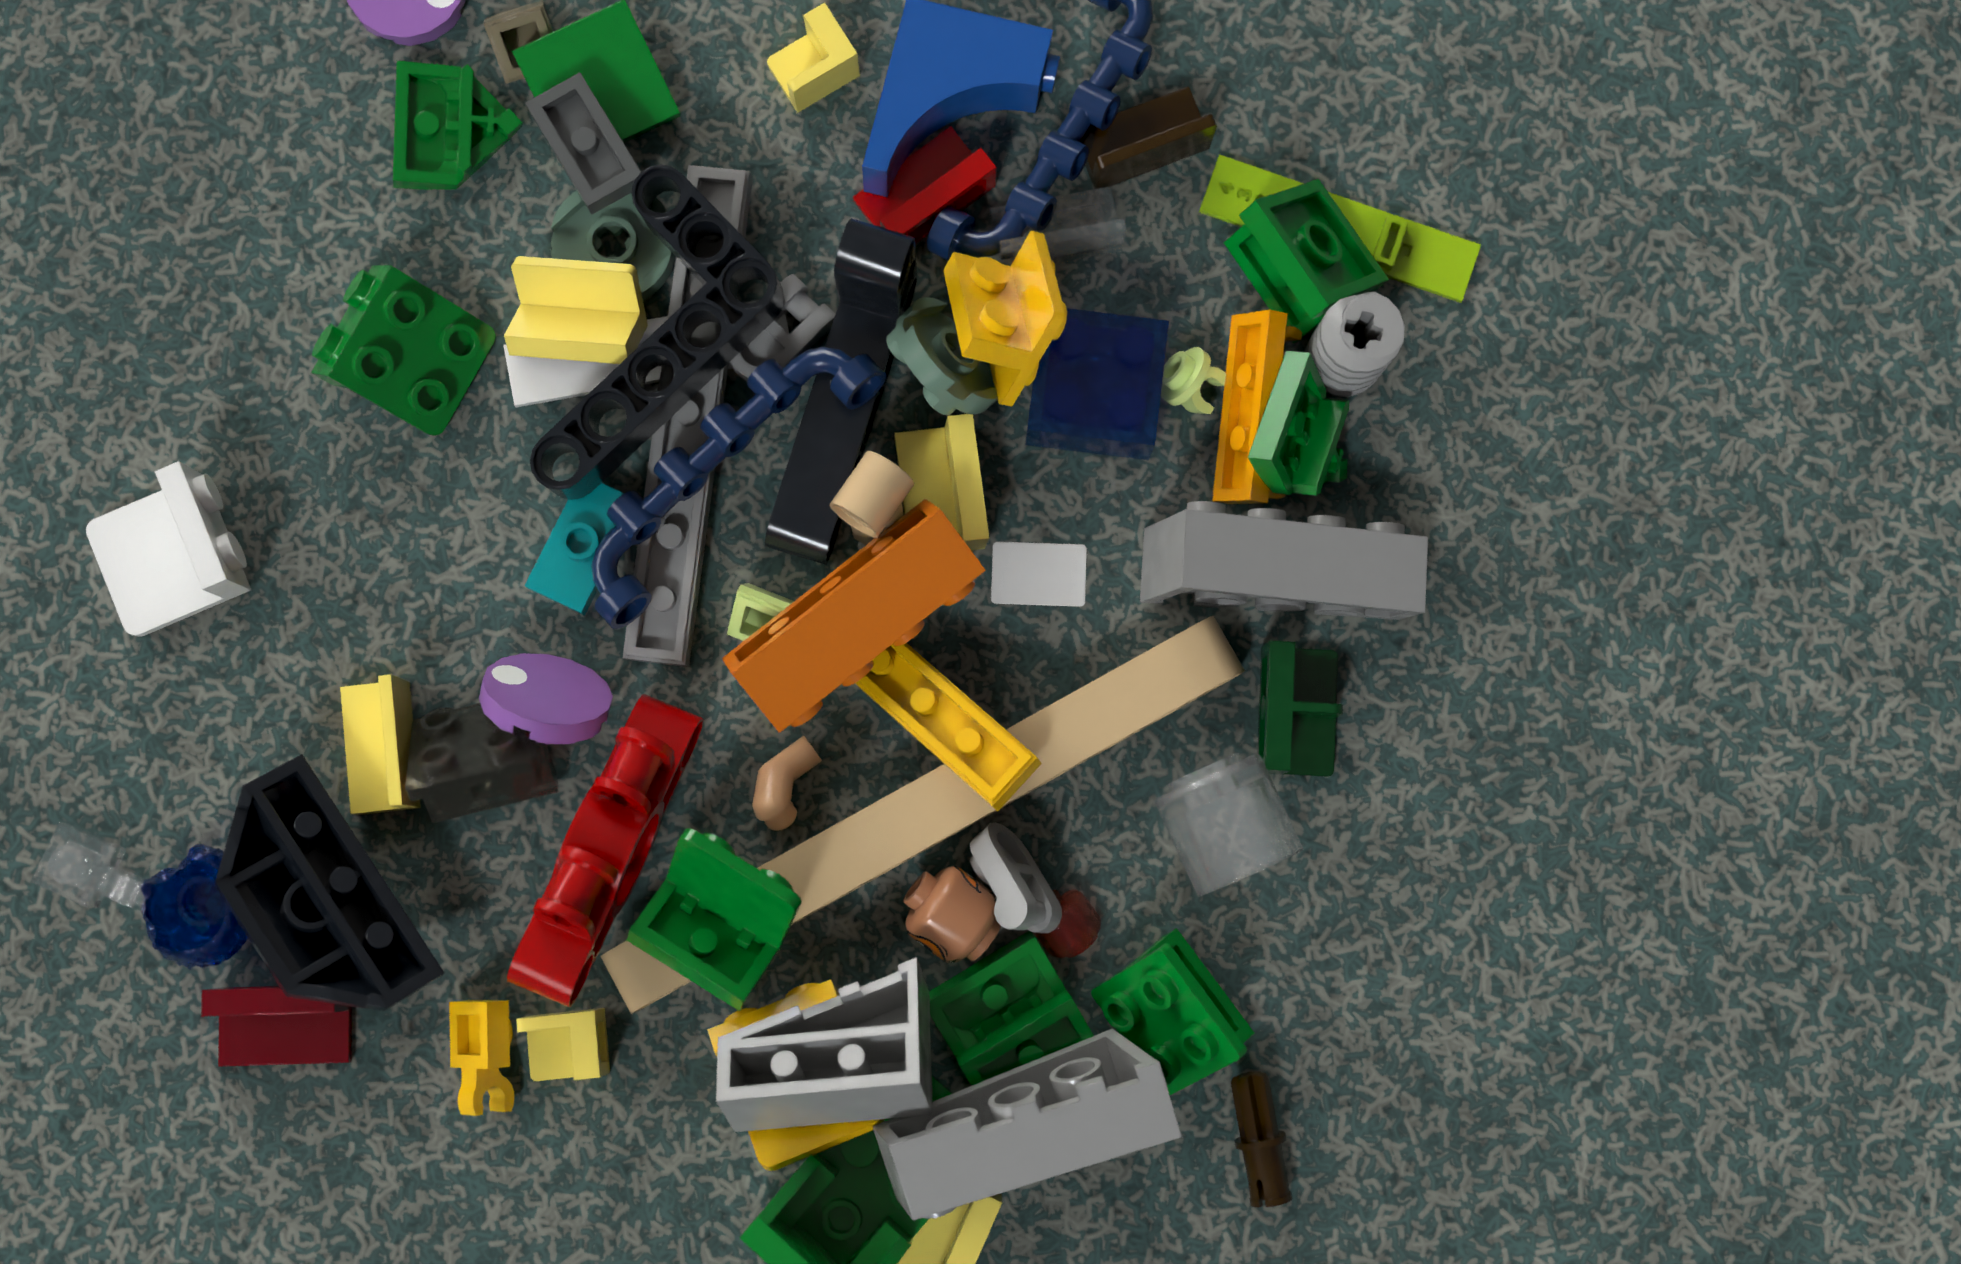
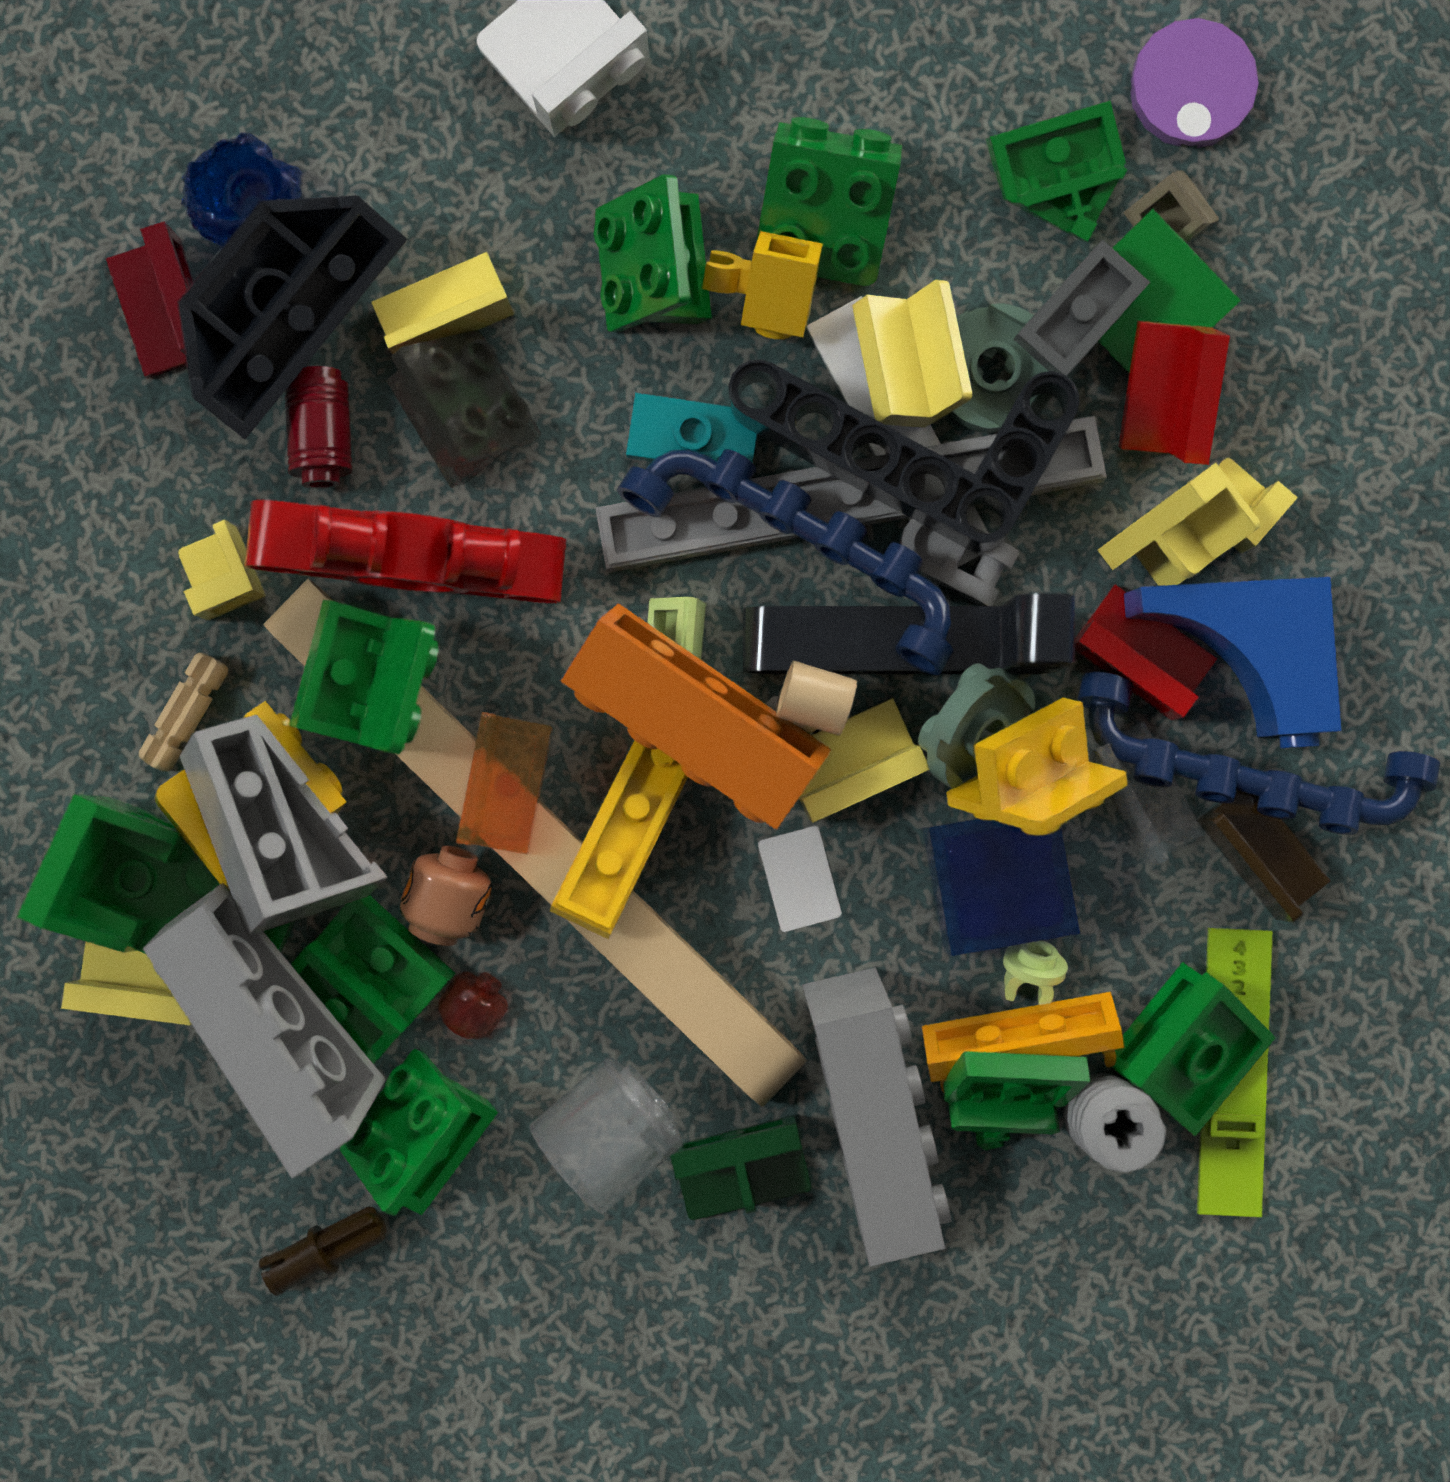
camera: 75 degrees right, 5 degrees up
(87, 869) = (247, 75): clear plate -> none
(398, 530) = (652, 256): none -> green bracket
(457, 902) = (318, 427): none -> dark red head
(464, 418) = (775, 282): none -> yellow brick
(481, 1046) = (191, 495): yellow plate -> none
(545, 696) = (531, 448): medium lavender tile -> none
(689, 83) = (1174, 390): none -> red panel
(692, 1122) = (183, 712): none -> tan axle
(775, 784) = (523, 689): light nougat arm -> none
(822, 112) = (1185, 529): none -> light yellow panel
(862, 816) = (504, 783): none -> clear orange panel
(1020, 887) = (494, 946): light grey plate -> none

